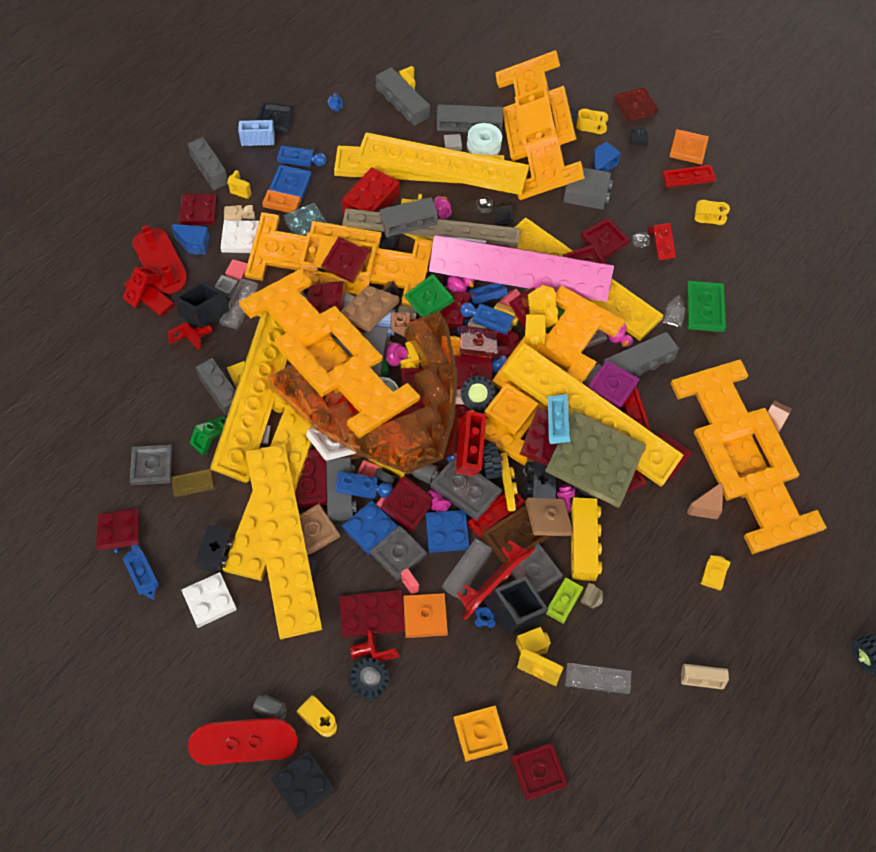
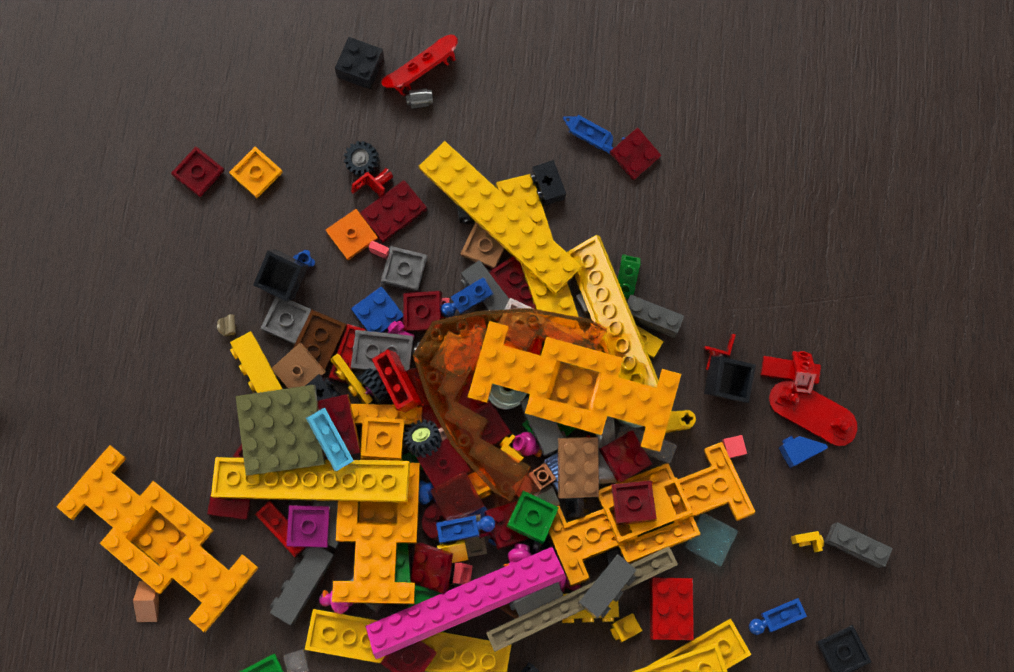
camera: 145 degrees right, 15 degrees up
(151, 465) = (653, 218): flat silver plate -> none
(192, 483) = (611, 226): clear yellow tile -> none
(198, 209) = (825, 490): dark red plate -> none
(208, 600) = (524, 147): white plate -> none
(226, 285) = (731, 423): light grey tile -> none
(235, 316) = (703, 411): clear plate -> none
(238, 213) = (785, 507): tan plate -> none
(238, 236) = (763, 485): white plate -> none
(256, 132) = (842, 614): light blue brick -> none
(281, 201) = (753, 548): orange plate -> none
(291, 181) = (763, 578): blue plate -> none
(315, 714) = (383, 113): yellow piece -> none
(369, 527) = (441, 275): blue plate -> none
(442, 207) = (594, 642): dark pink animal -> none
(467, 568) = (342, 291): clear plate -> none
(474, 598) = (308, 284): red piece -> none
(488, 292) = (490, 562): blue plate -> none
(534, 641) = (252, 259): yellow brick -> none
(535, 329) = (406, 529): yellow brick -> none
(540, 667) = (235, 239): yellow plate -> none
(543, 302) = (416, 566): yellow brick -> none
(564, 600) = (248, 310): lime plate -> none
(598, 678) = (189, 264): clear plate -> none
(704, 676) = (106, 315): tan brick -> none
(709, 504) = (169, 469): nougat slope -> none
(715, 572) = (136, 409): yellow bracket -> none

